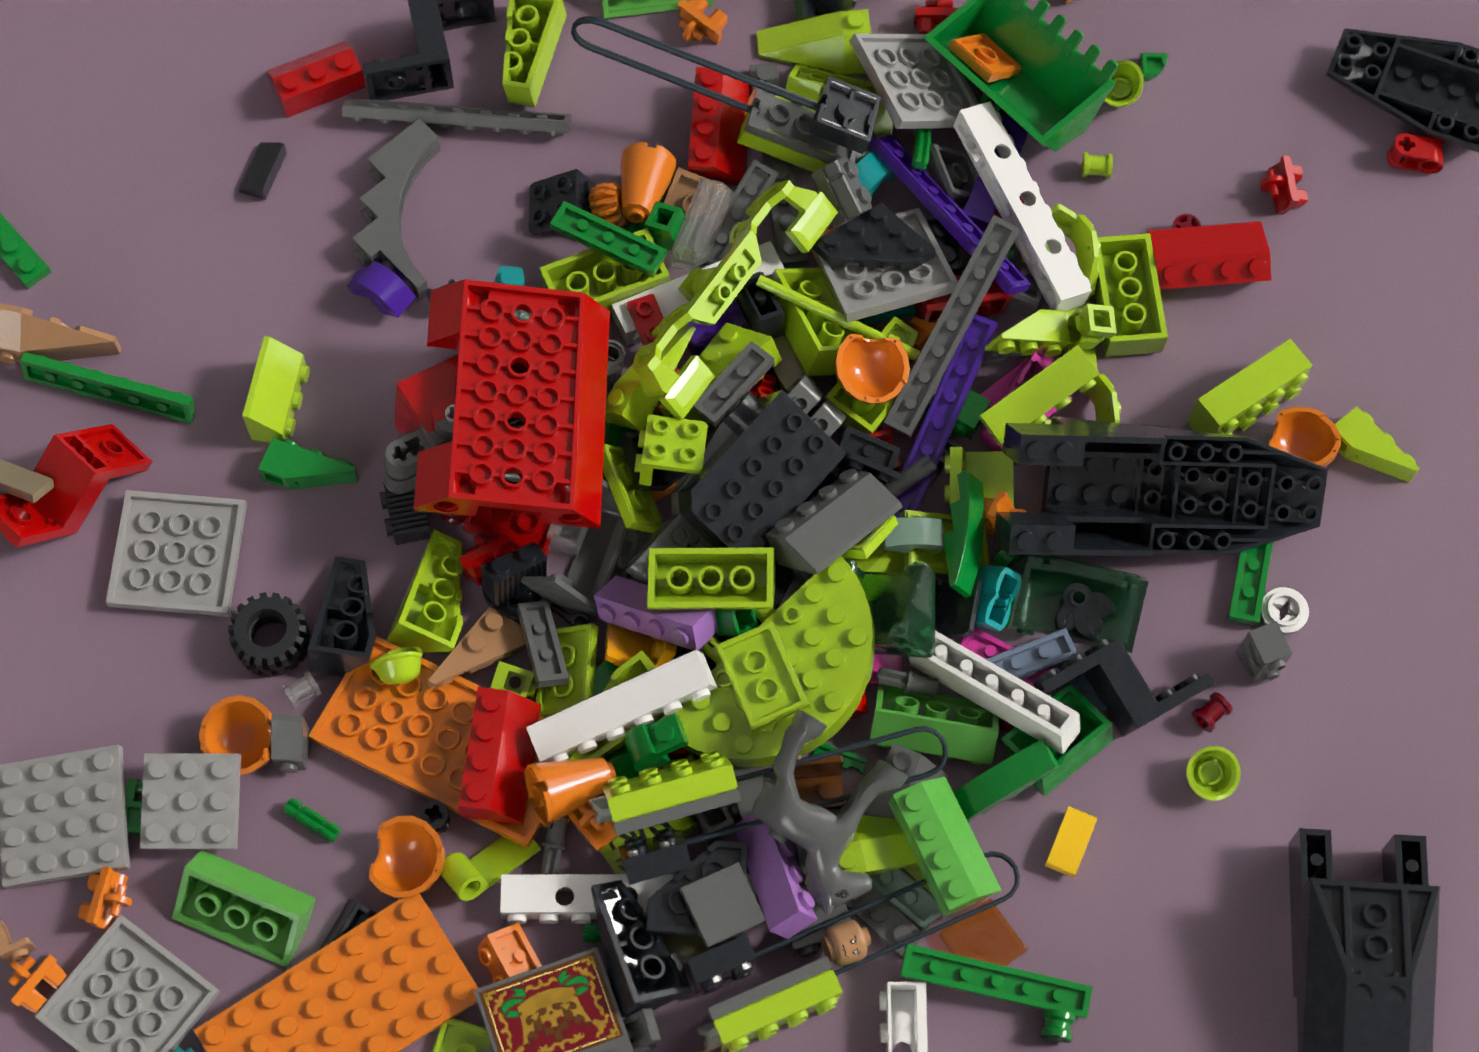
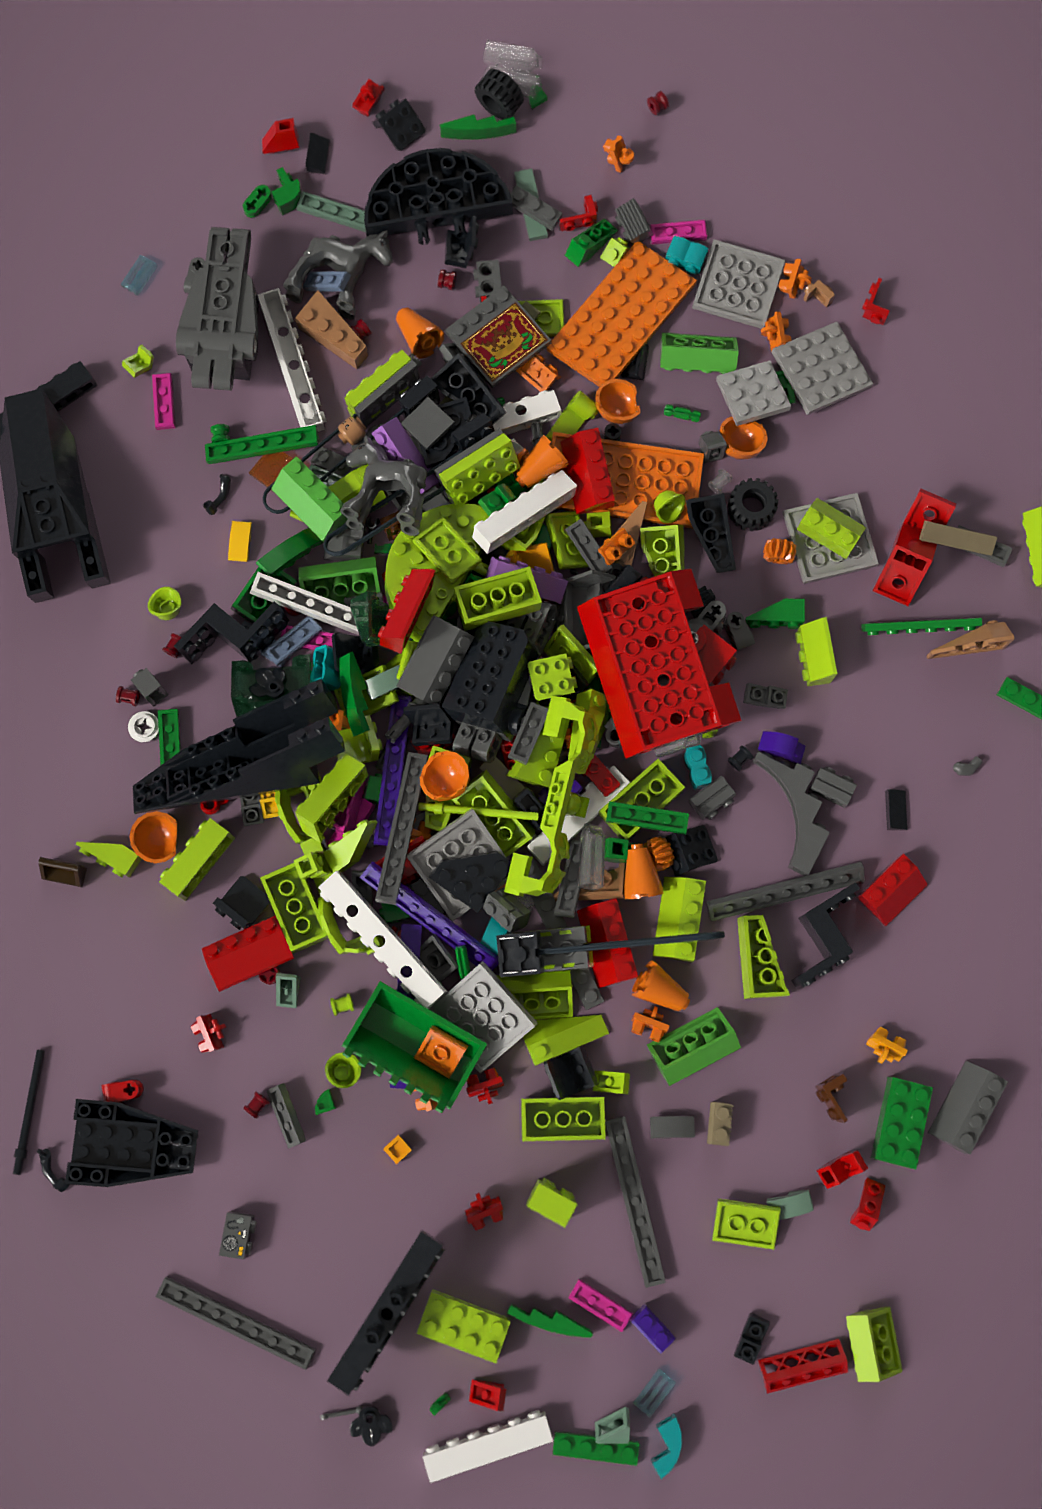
camera: 165 degrees right, 10 degrees up
(139, 187) = (965, 769): none -> dark grey arm
(168, 556) = (831, 528): none -> lime slope
(261, 550) = (779, 551): none -> orange gear
(333, 219) = (833, 787): none -> dark grey brick
(371, 368) = (765, 696): none -> dark grey slope
(371, 462) = (739, 634): none -> dark grey piece
(502, 626) = (616, 546): none -> orange hips
(508, 251) = (712, 798): none -> dark grey brick
(610, 123) = (679, 915): none -> lime slope
(668, 62) = (660, 988): none -> orange cone
(854, 584) = (407, 609): none -> red slope
(1073, 935) = (211, 507): none -> black piece
(1163, 207) = (287, 990): none -> sand green slope
(1202, 326) = (242, 903): none -> black bracket
(1206, 62) = (286, 1115): none -> dark grey plate
(1242, 85) = (256, 1105): none -> dark red bush
(1301, 660) = (127, 696): none -> dark red bush
(1443, 448) = (62, 872): none -> dark brown tile

